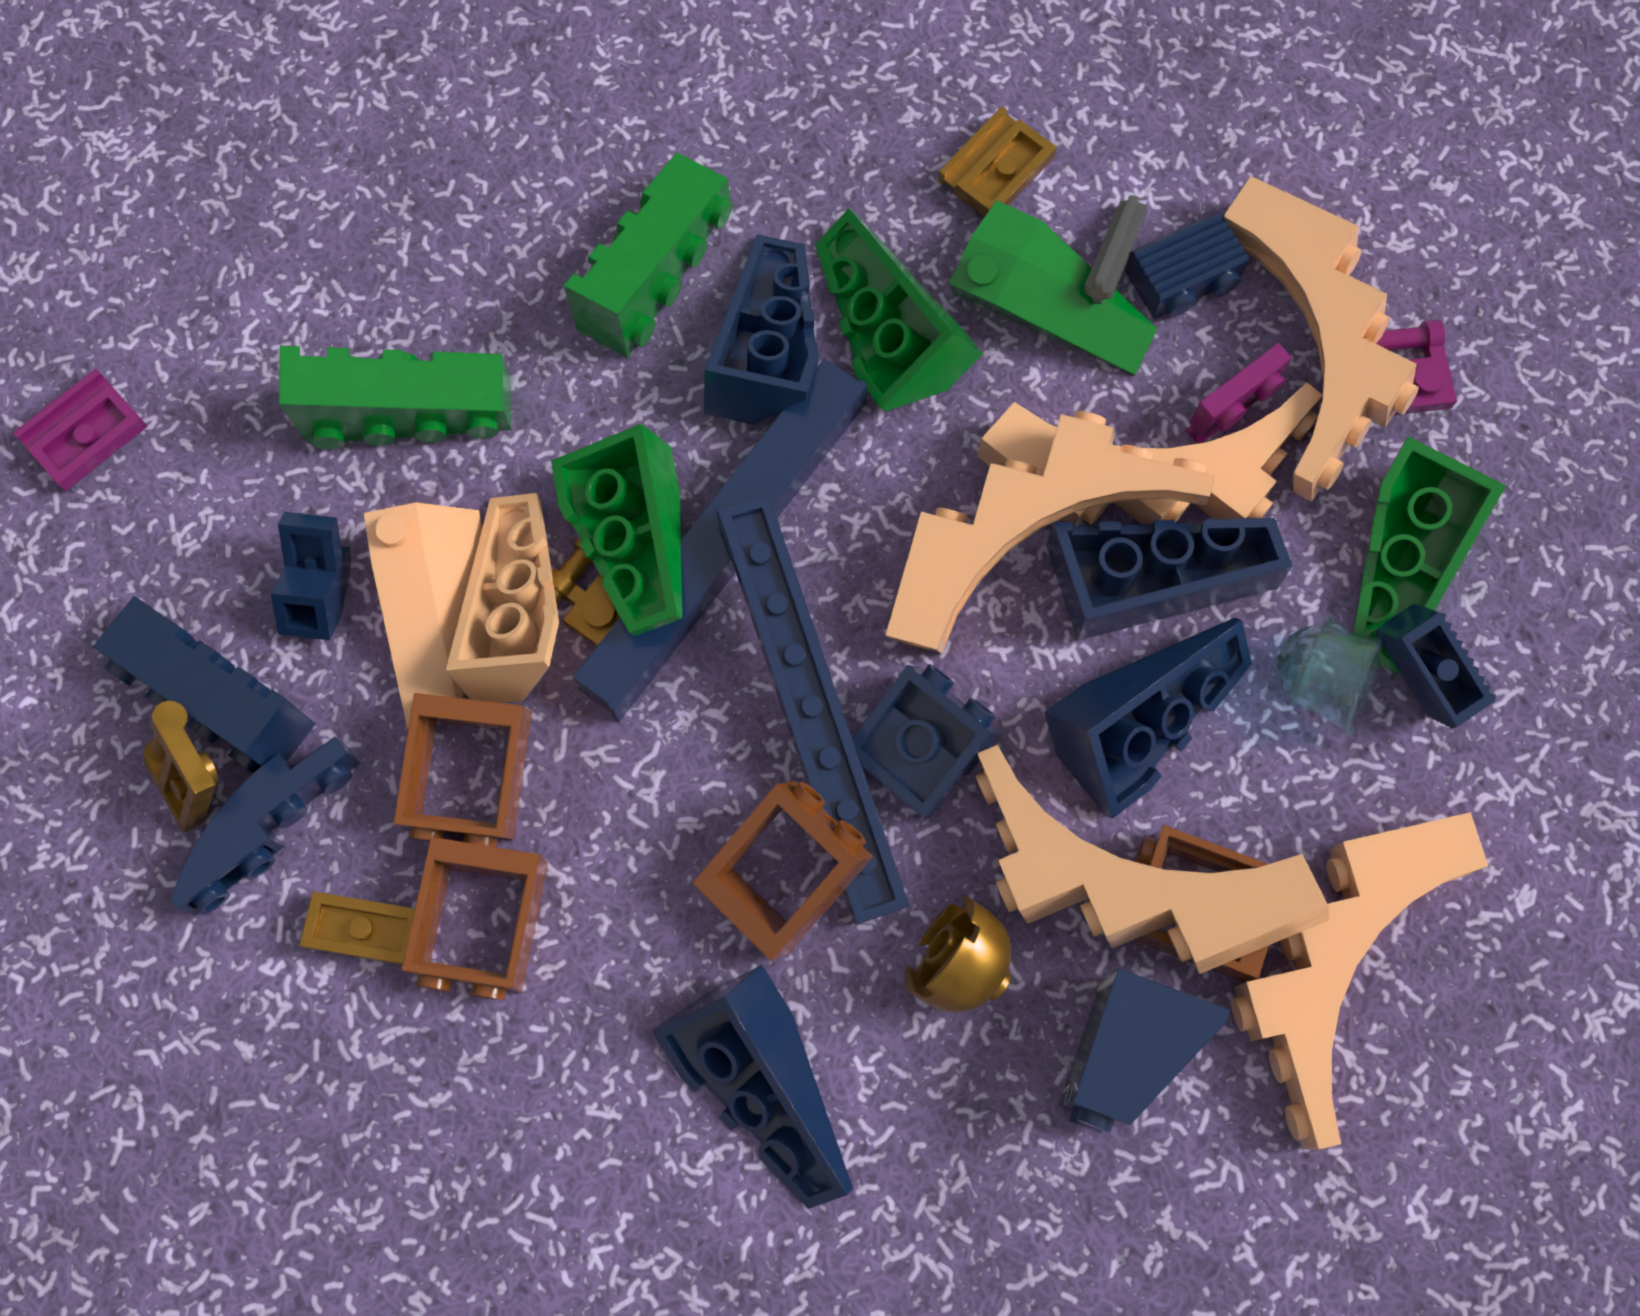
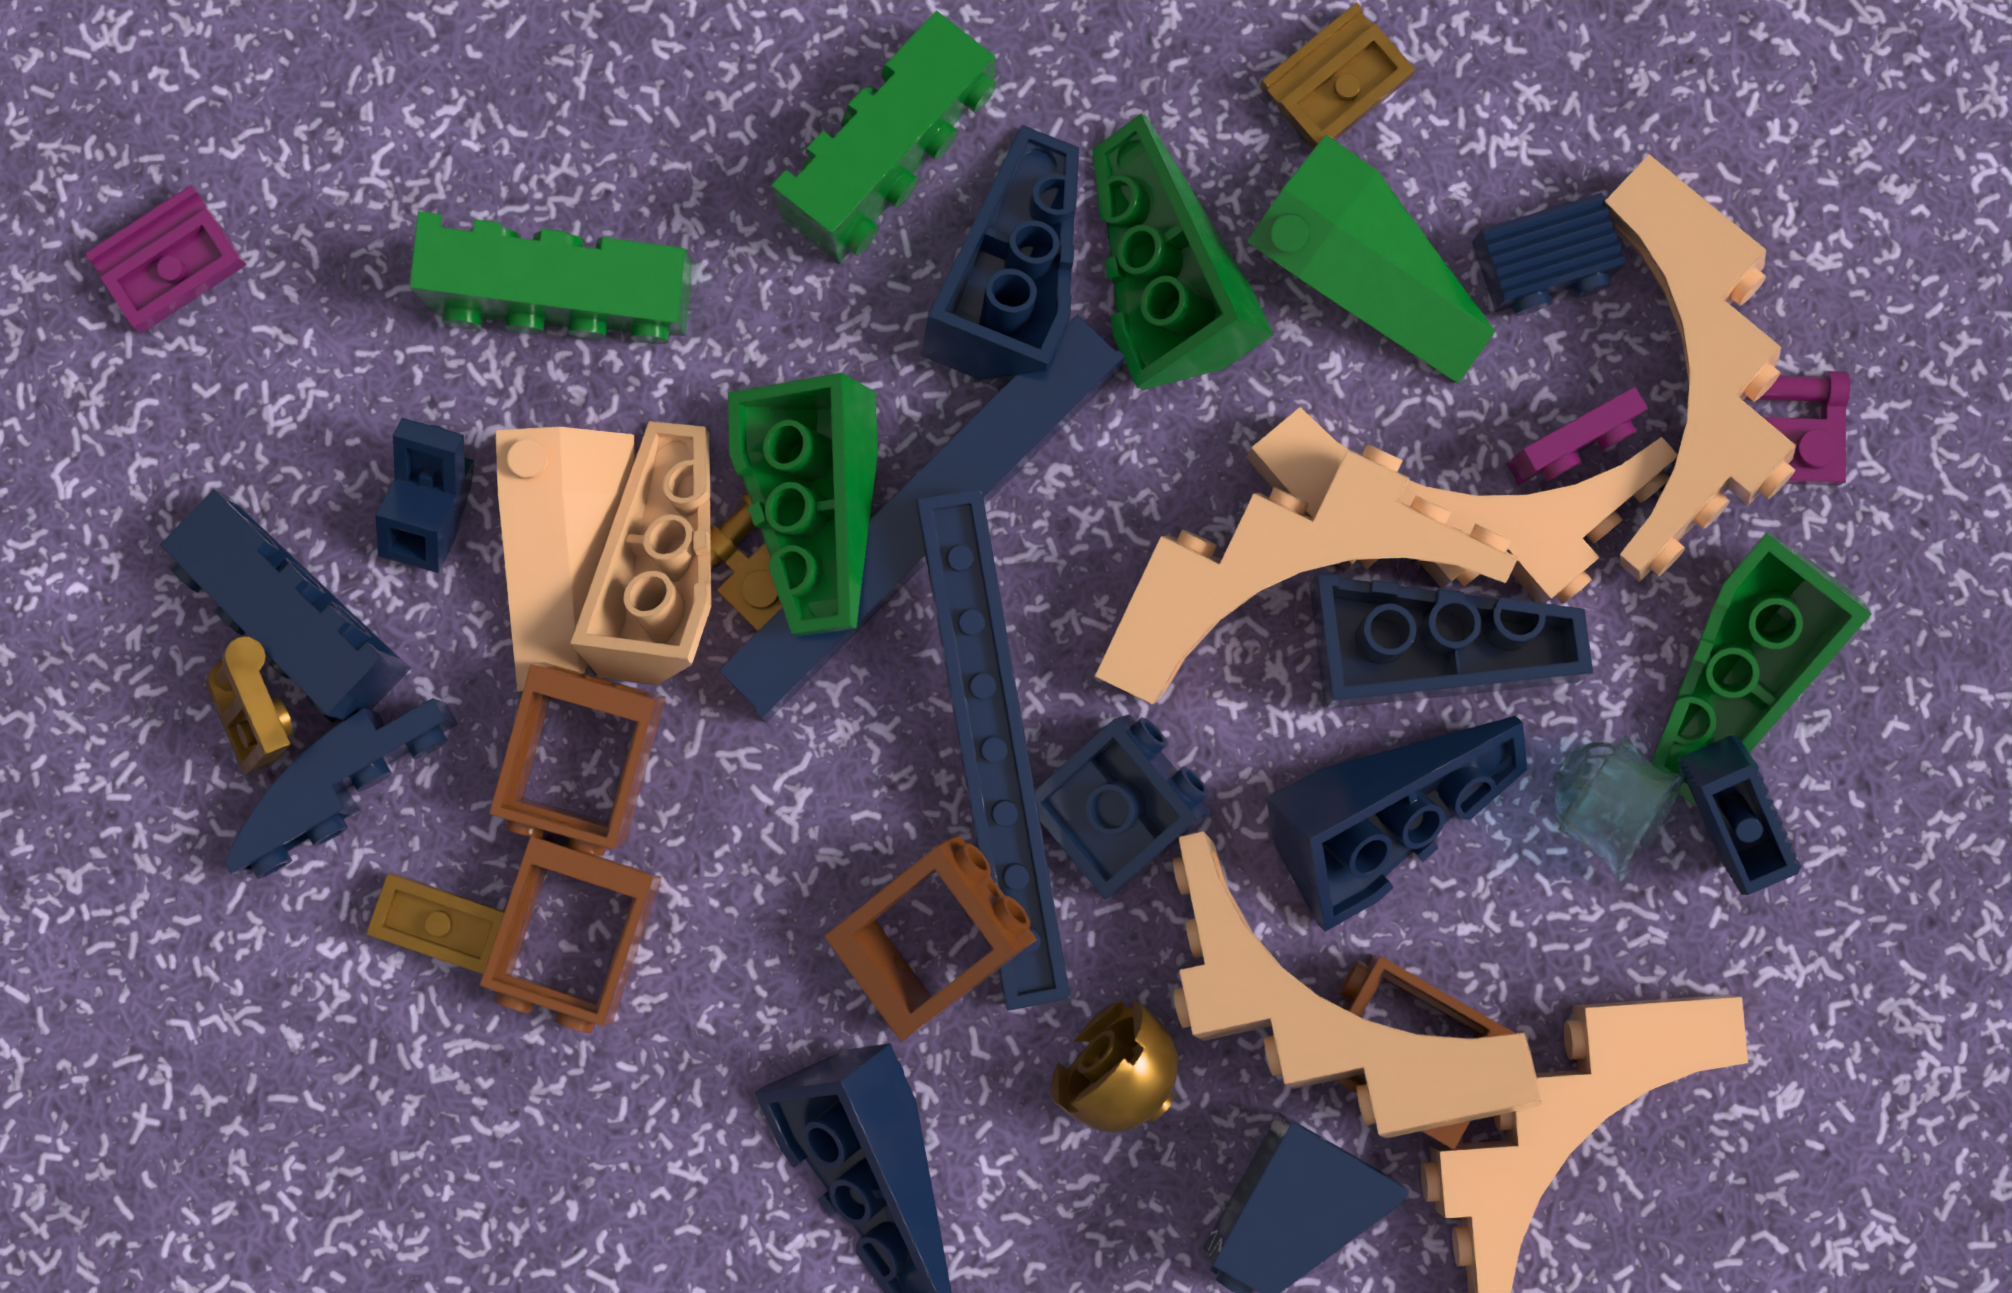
camera: 10 degrees right, 10 degrees up
(1115, 250) = (1462, 222): dark grey axle -> none

